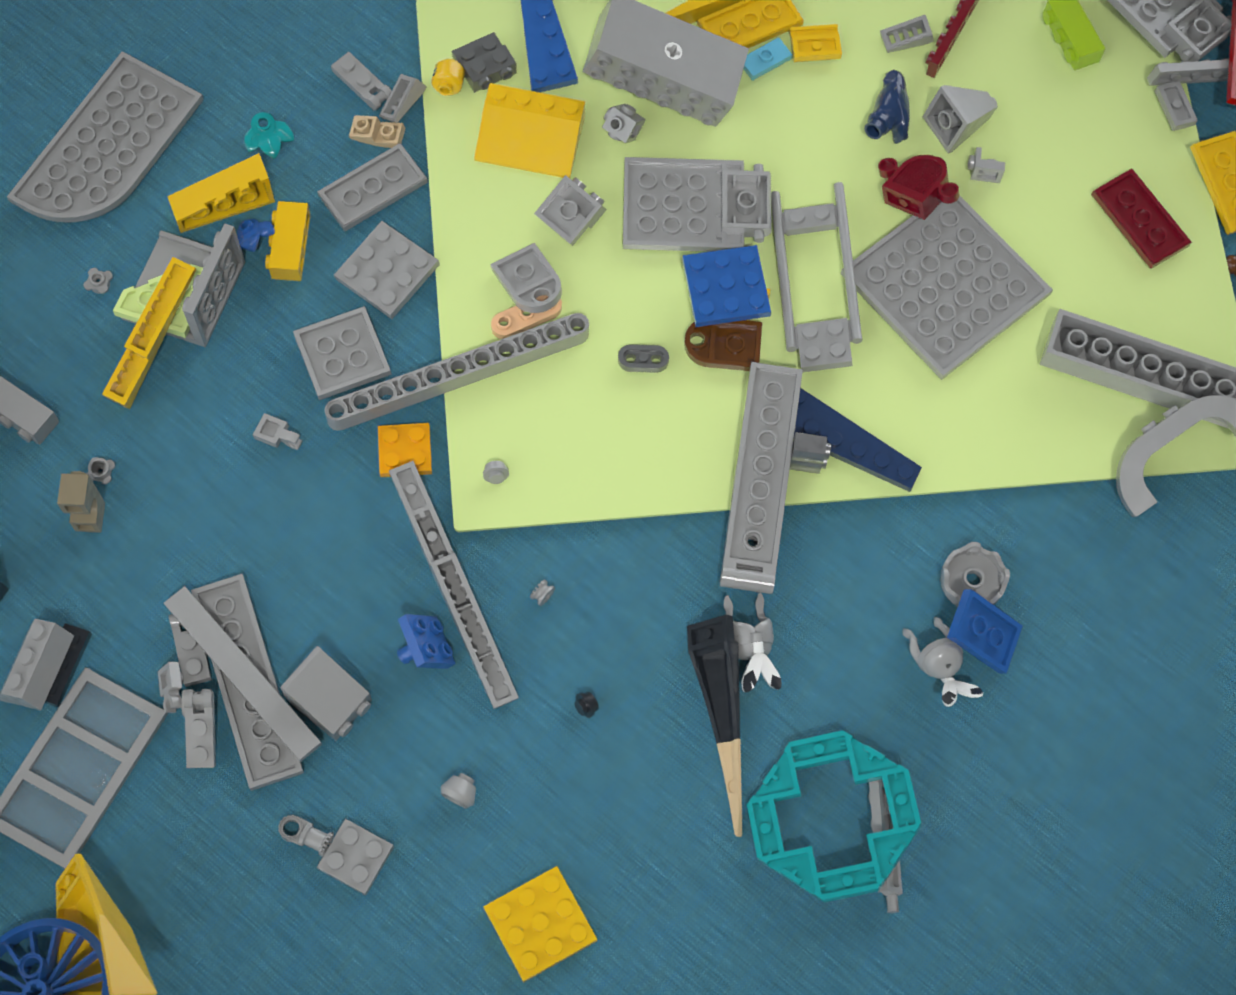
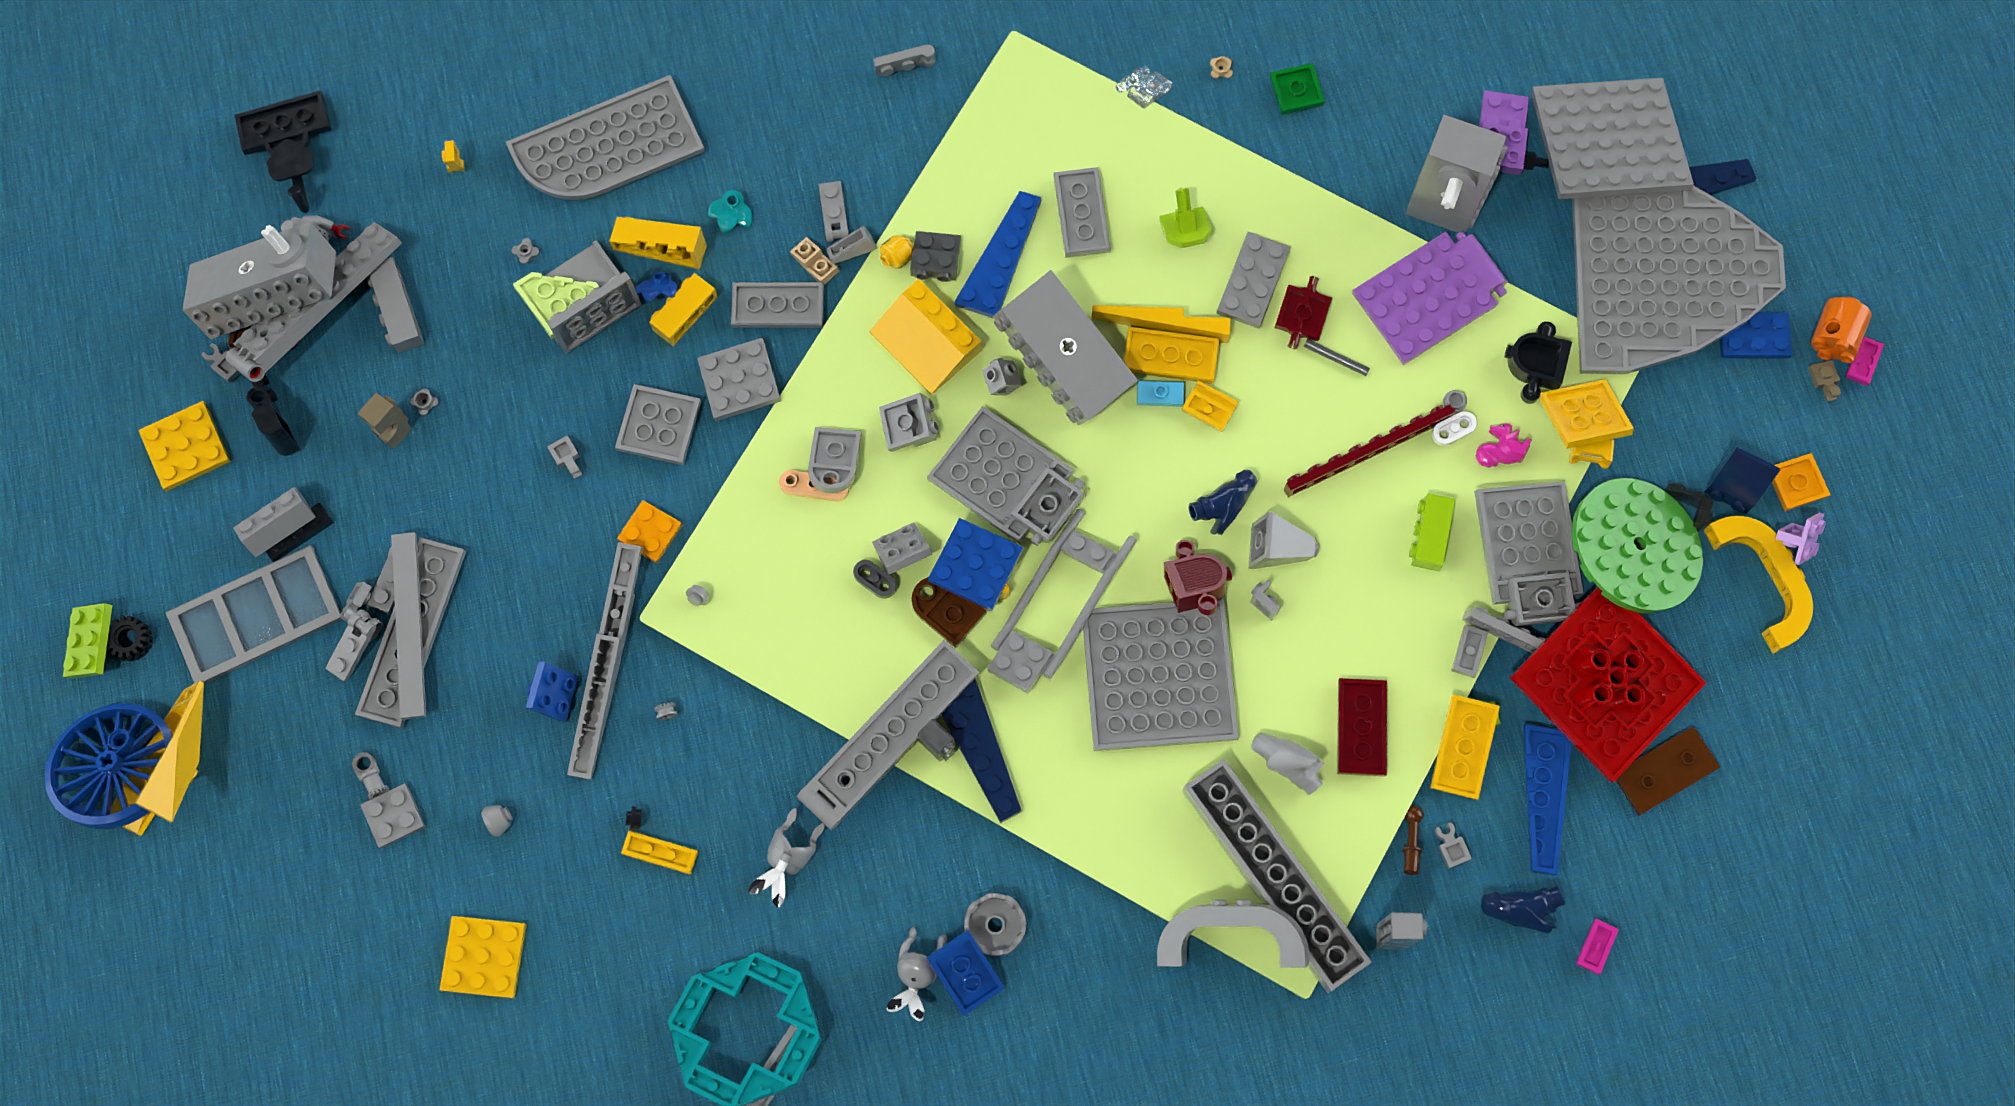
camera: 40 degrees right, 5 degrees up
(149, 333) = (524, 319): yellow slope -> none
(326, 694) = (454, 682): light grey slope -> none
(450, 381) = (719, 490): light grey beam -> none
(631, 719) = (659, 852): none -> yellow tile
(648, 317) = (901, 548): none -> light grey plate
(717, 669) = (745, 860): black plate -> none
(911, 25) = (1290, 454): light grey slope -> none
(1109, 278) = (1289, 760): none -> light grey animal

